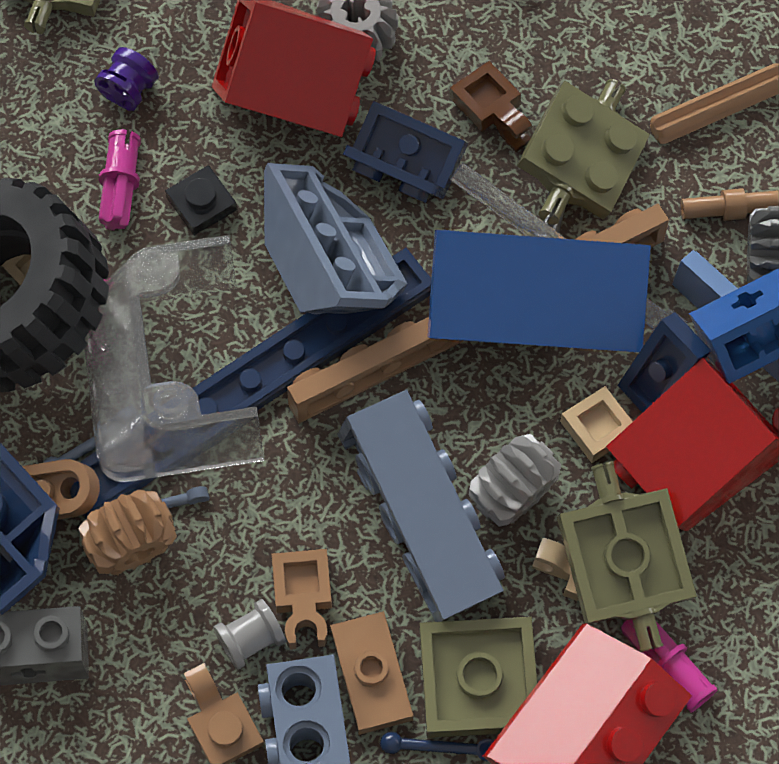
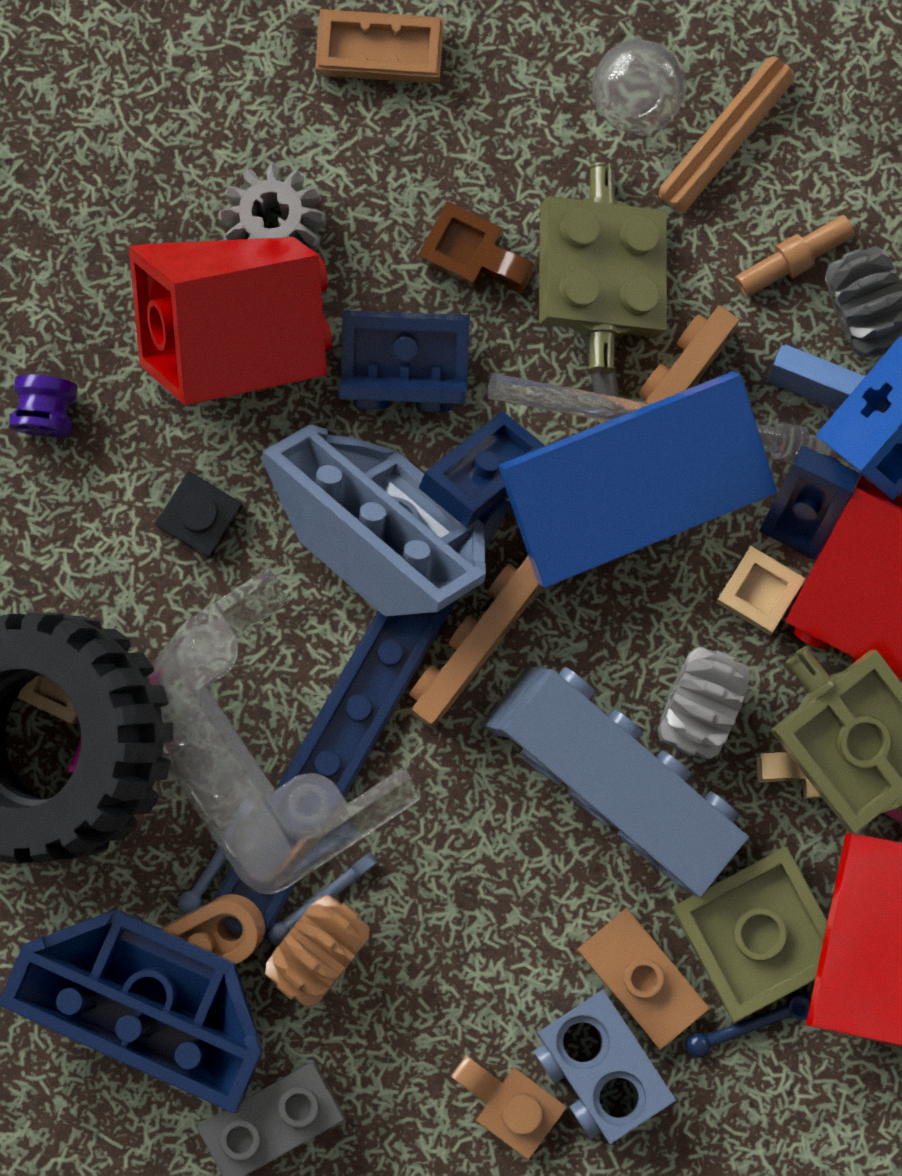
camera: 20 degrees left, 15 degrees up
(119, 179) = (95, 533): dark pink axle -> none
(249, 634) = (497, 998): light grey bush -> none
(302, 588) = (527, 920): medium nougat plate -> none
(409, 245) = (469, 476): none -> dark blue plate
(668, 45) = (639, 87): none -> clear hair

